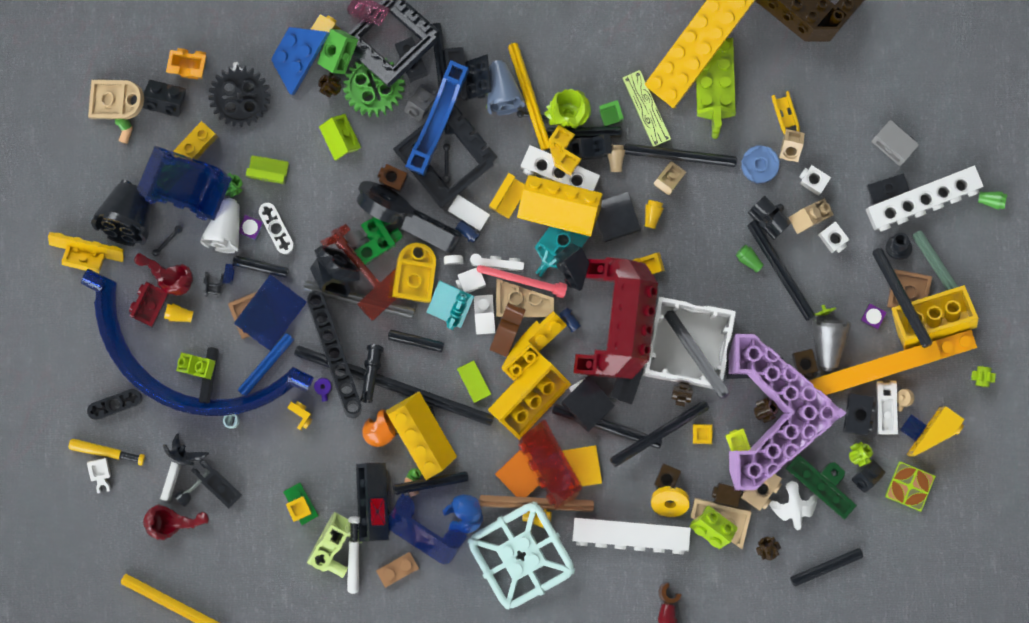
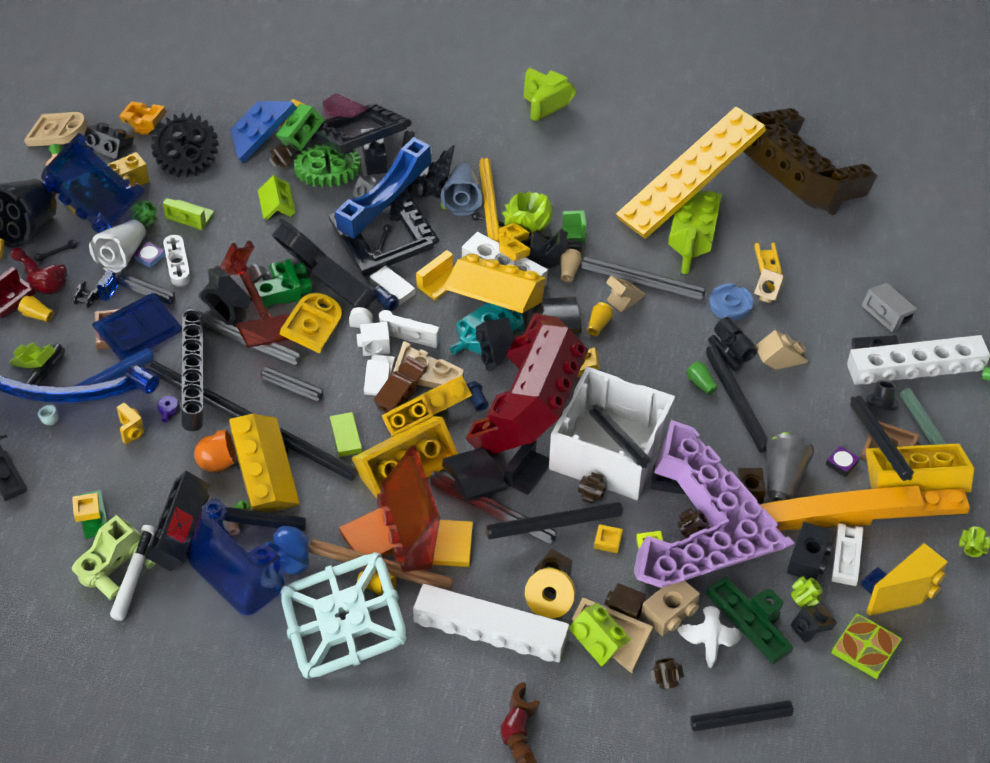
camera: 10 degrees right, 35 degrees down
(372, 365) = (232, 390): black pin -> none
(397, 569) = (182, 606): medium nougat plate -> none
(398, 184) = (321, 236): reddish brown brick -> none
(450, 304) = (343, 353): hinge -> none
(558, 289) = (470, 364): coral piece -> none
(646, 108) = (614, 234): yellowish green tile -> none
(817, 188) = (791, 321): white brick -> none
(834, 229) = (805, 375): white brick -> none
(904, 398) = (871, 548): tan piece -> none

